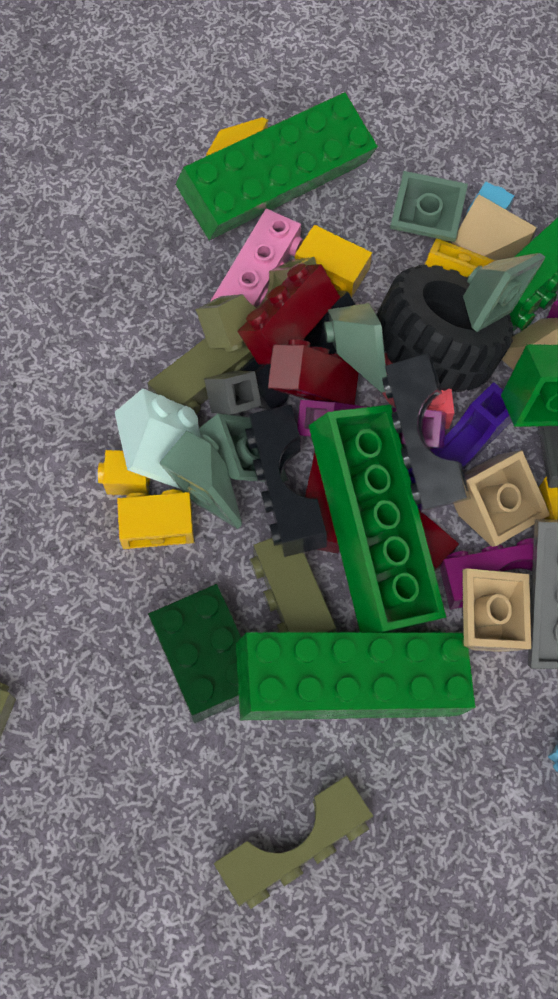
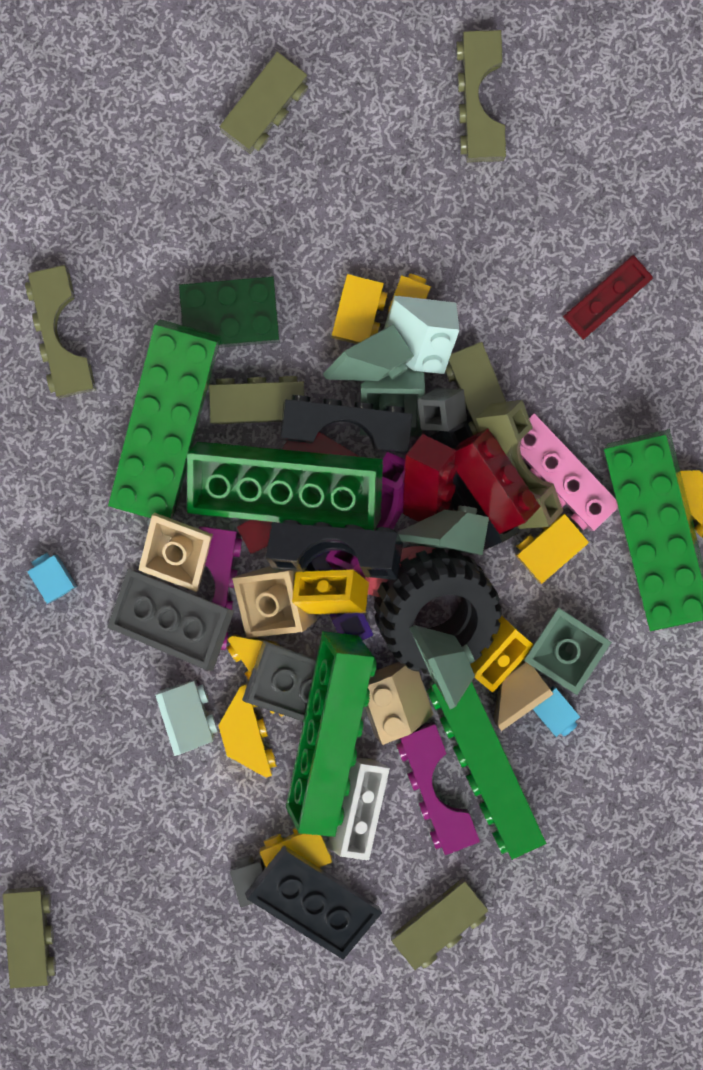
camera: 110 degrees right, 20 degrees up
(62, 293) = (608, 297): none -> dark red tile
(470, 432) = (330, 592): none -> yellow brick

